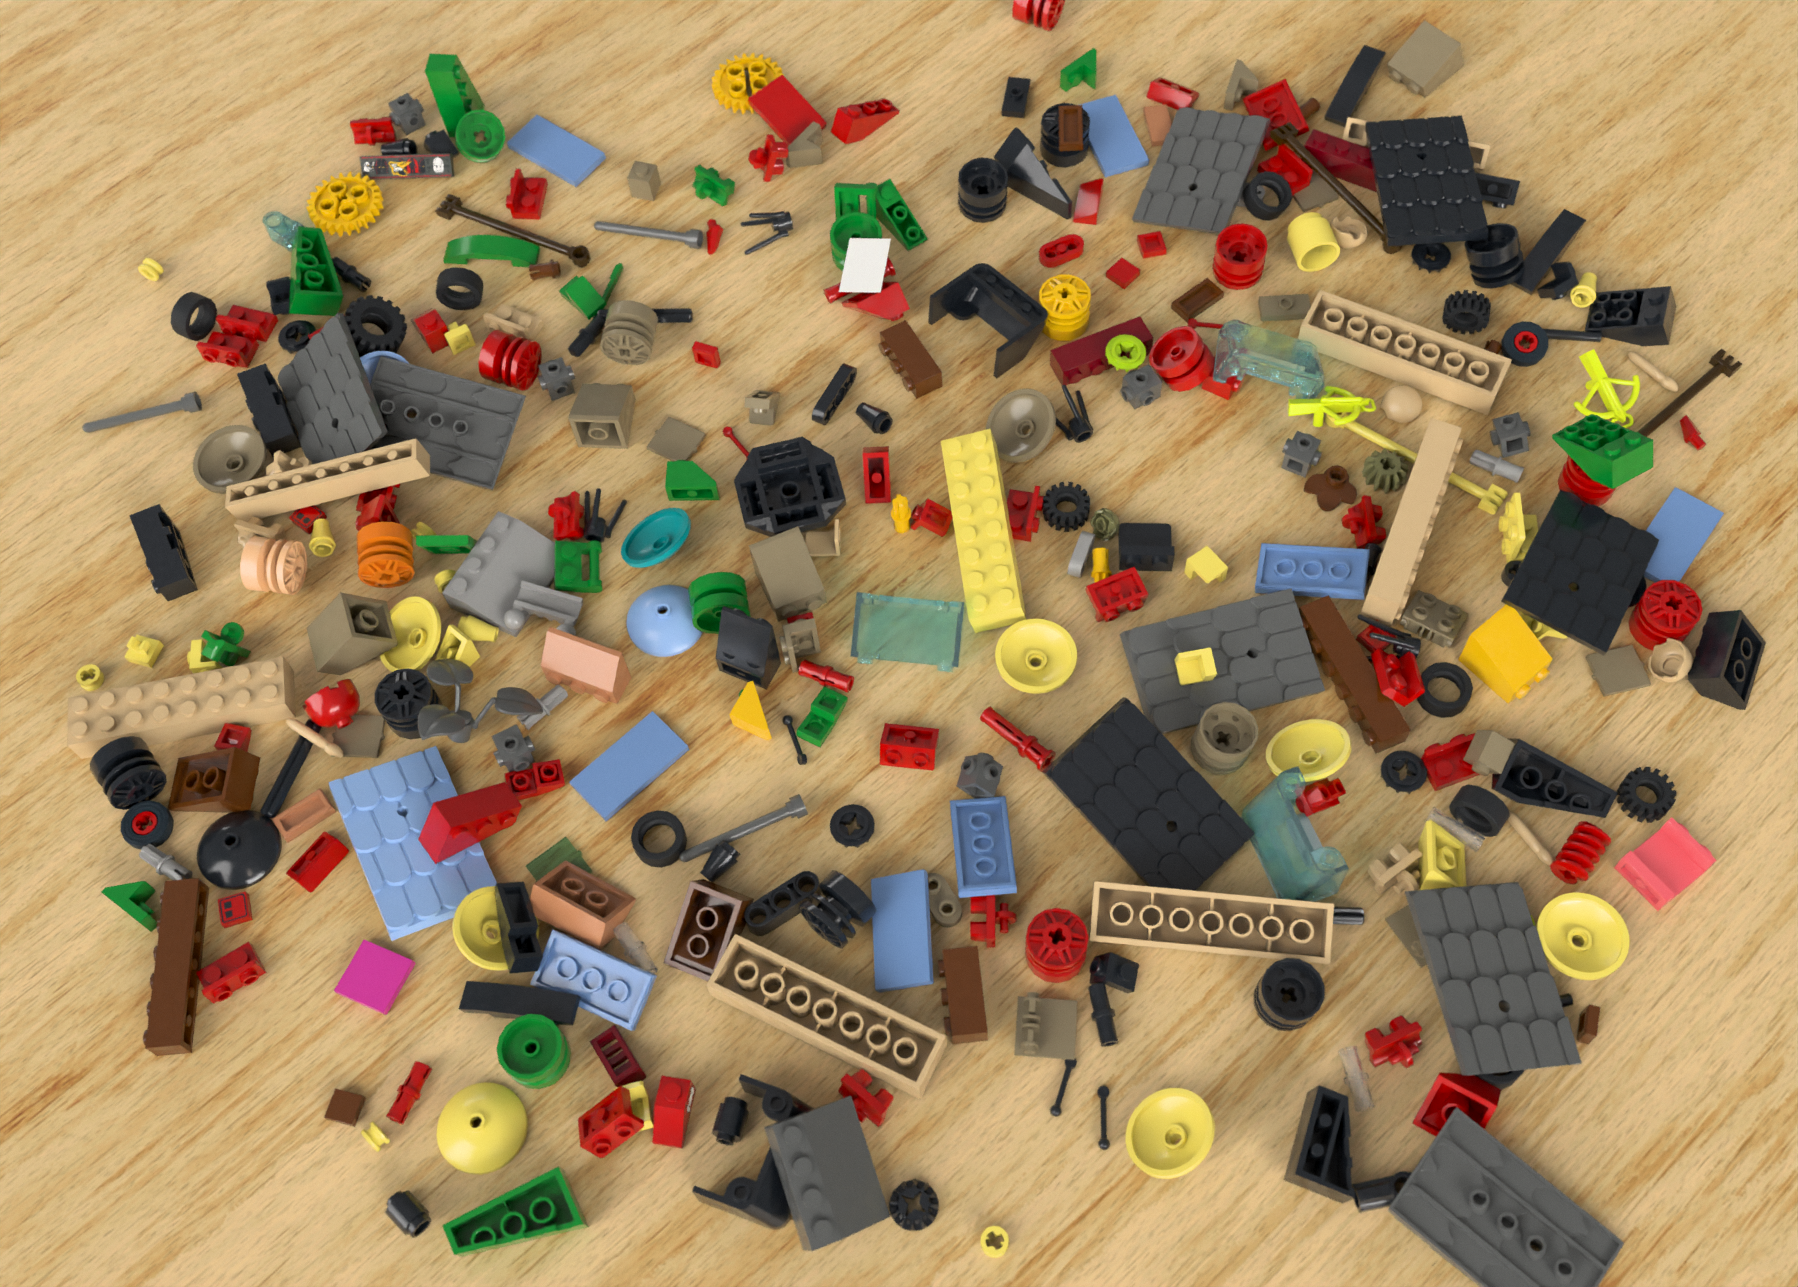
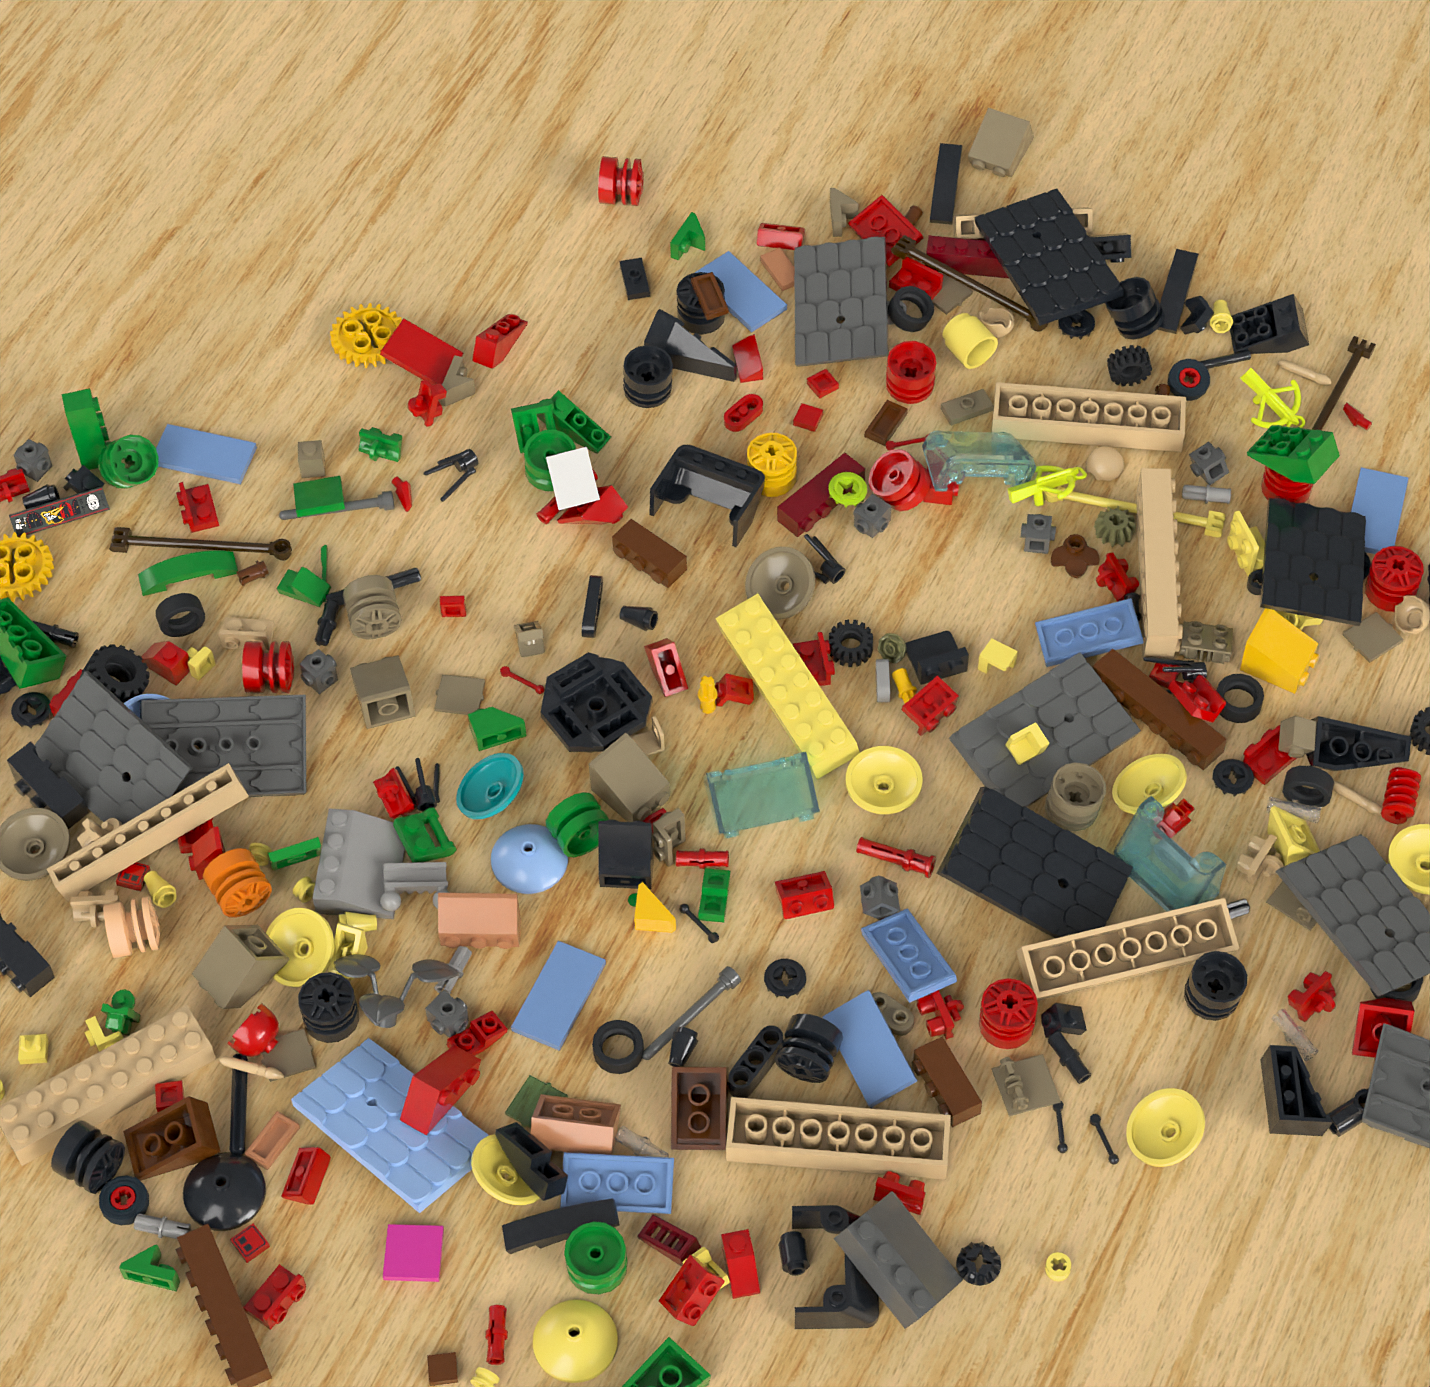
camera: 25 degrees left, 5 degrees down
(635, 217) = (318, 496): none -> green tile

